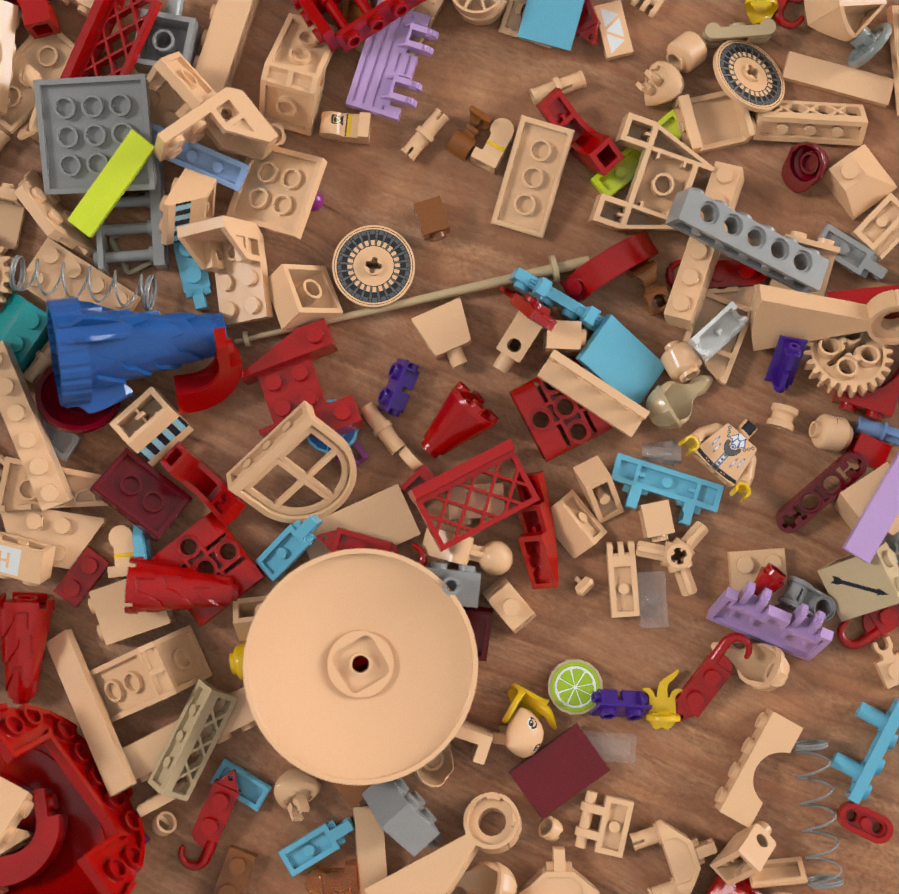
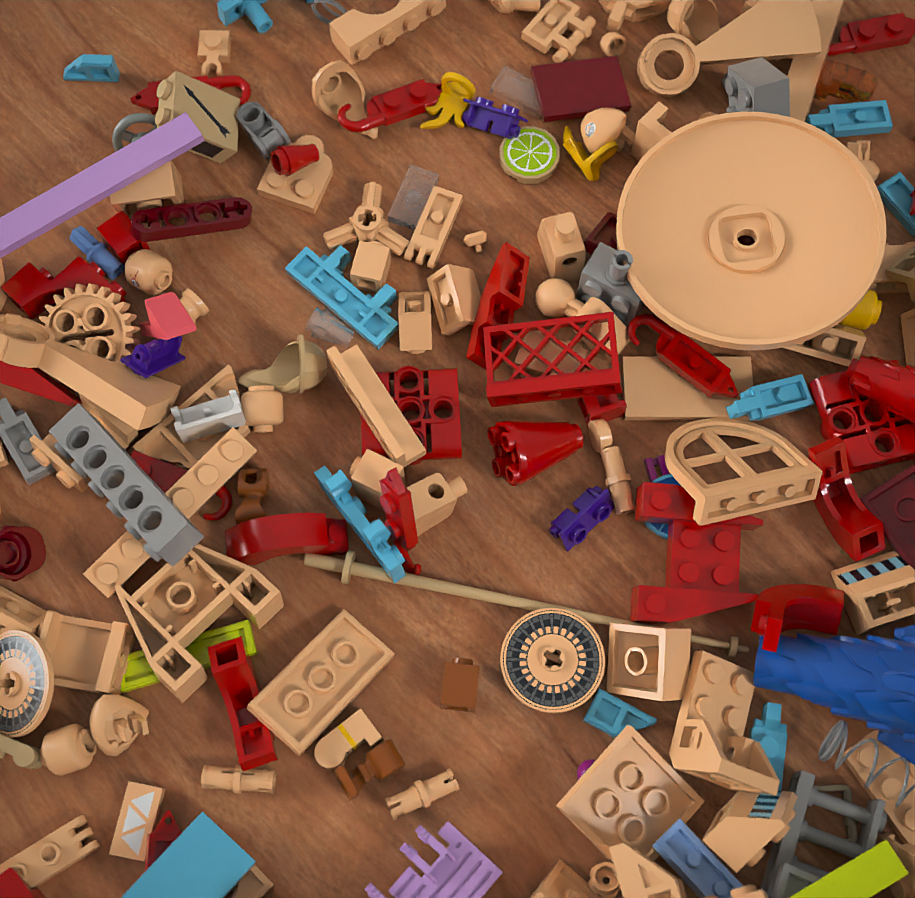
camera: 155 degrees left, 15 degrees down
(311, 251) = (613, 715): none -> medium azure tile
(346, 127) = (513, 847): light nougat leg -> none
(445, 331) = (503, 552): light nougat torso -> none
(620, 359) = (327, 431): medium azure tile -> none
(726, 453) = (266, 295): light nougat torso -> none
(790, 391) = (166, 318): none -> coral slope
(790, 632) = (315, 131): lavender hinge -> none

